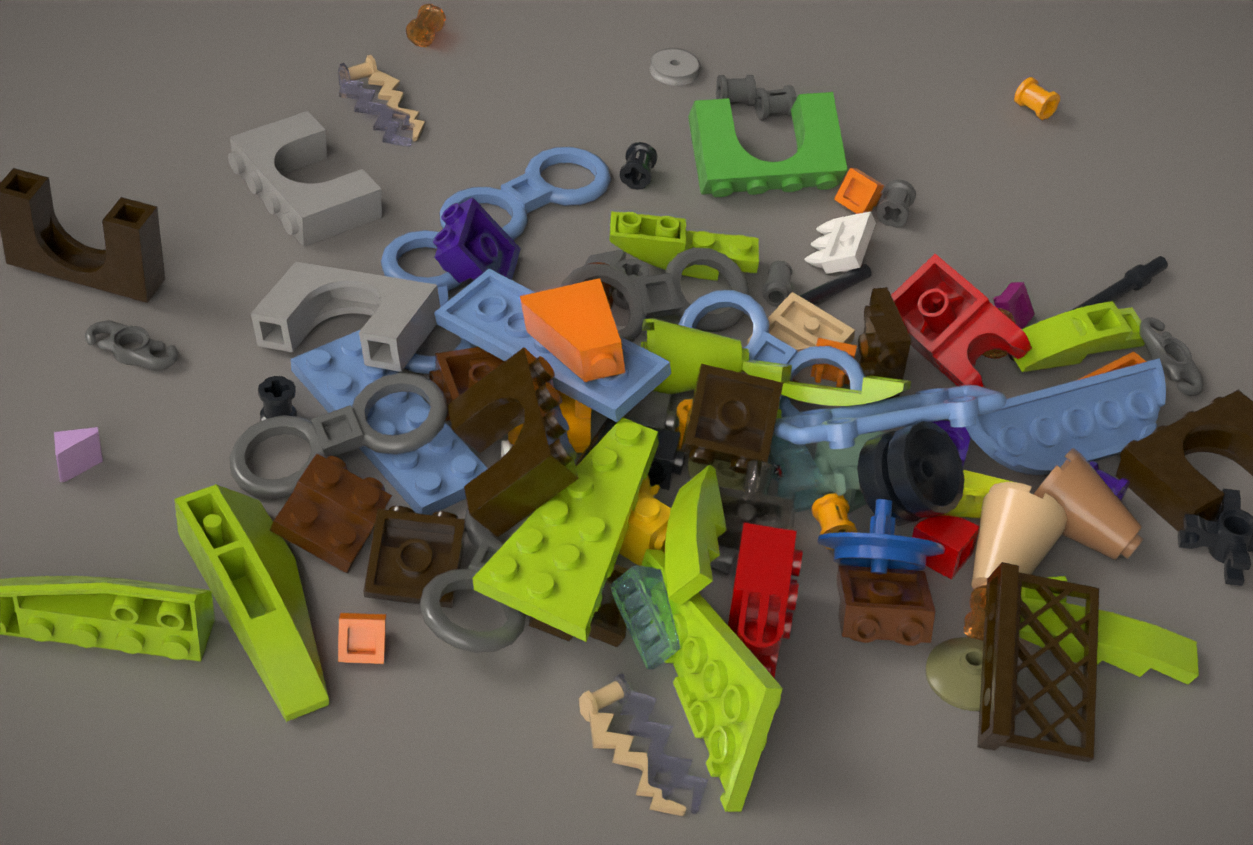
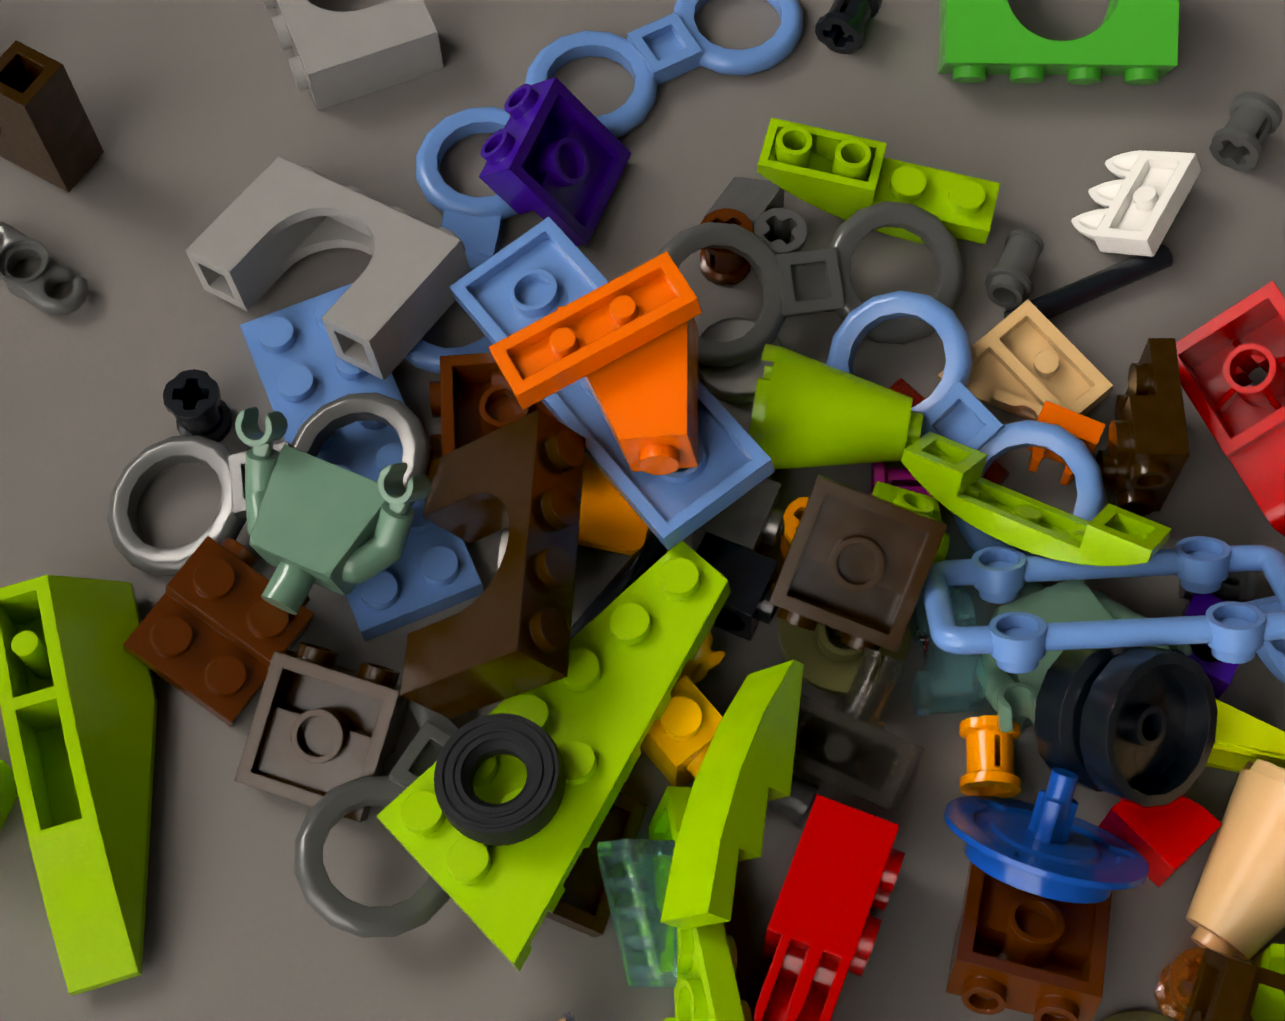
camera: 20 degrees right, 20 degrees up
(362, 638) = (211, 867): orange tile -> none
(392, 432) = (318, 517): none -> sand green torso
(550, 297) = (595, 330): none -> orange plate
(551, 557) = (514, 819): none -> black tyre
(859, 192) = (1189, 105): orange tile -> none

